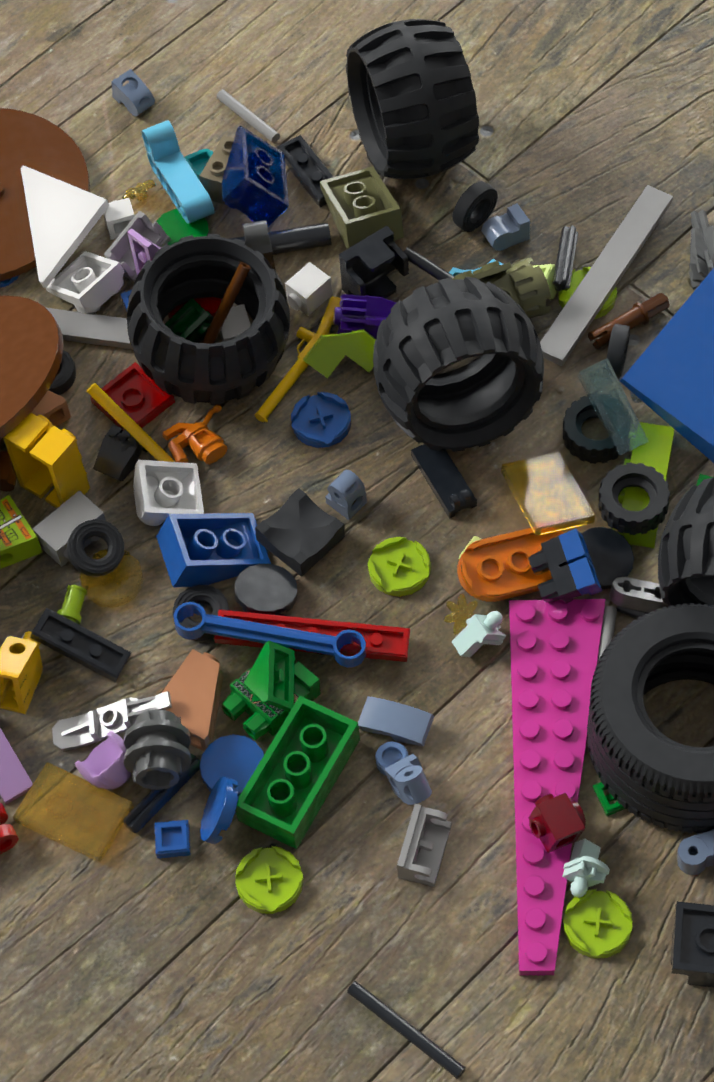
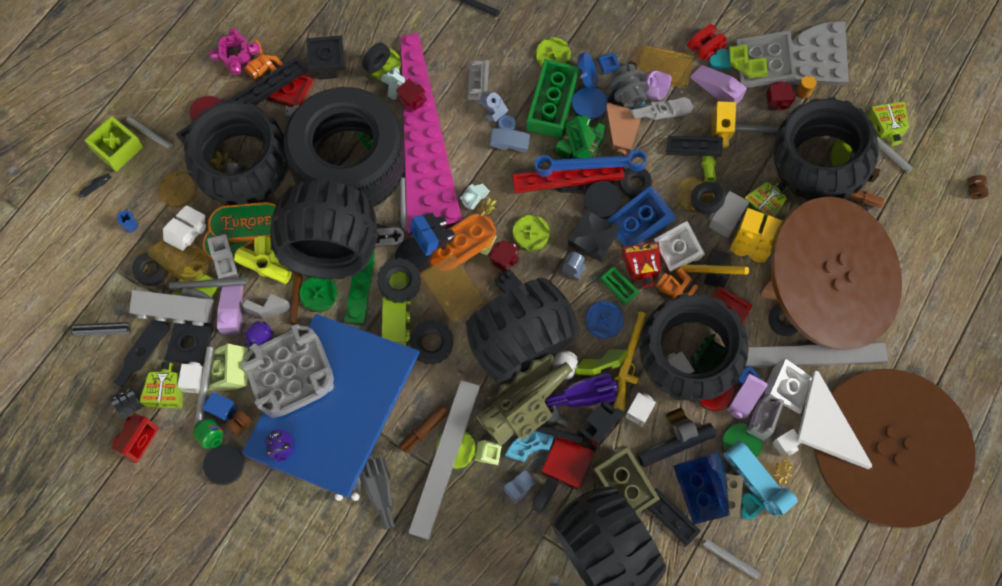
camera: 160 degrees right, 10 degrees up
(134, 94) = (821, 557): sand blue leg -> none
(226, 303) = (686, 357): reddish brown piece -> none
(233, 482) = (642, 262): none -> red torso
(292, 481) = (606, 282): none -> green tile
(437, 245) = (567, 462): none -> red tile
(452, 529) = (504, 255): none -> dark red brick
(565, 258) = (474, 468): black axle -> none
(612, 406) = (431, 350): clear light blue slope -> none
(612, 904) = (375, 58): none -> black tyre
(618, 348) = (426, 394): black tyre -> none

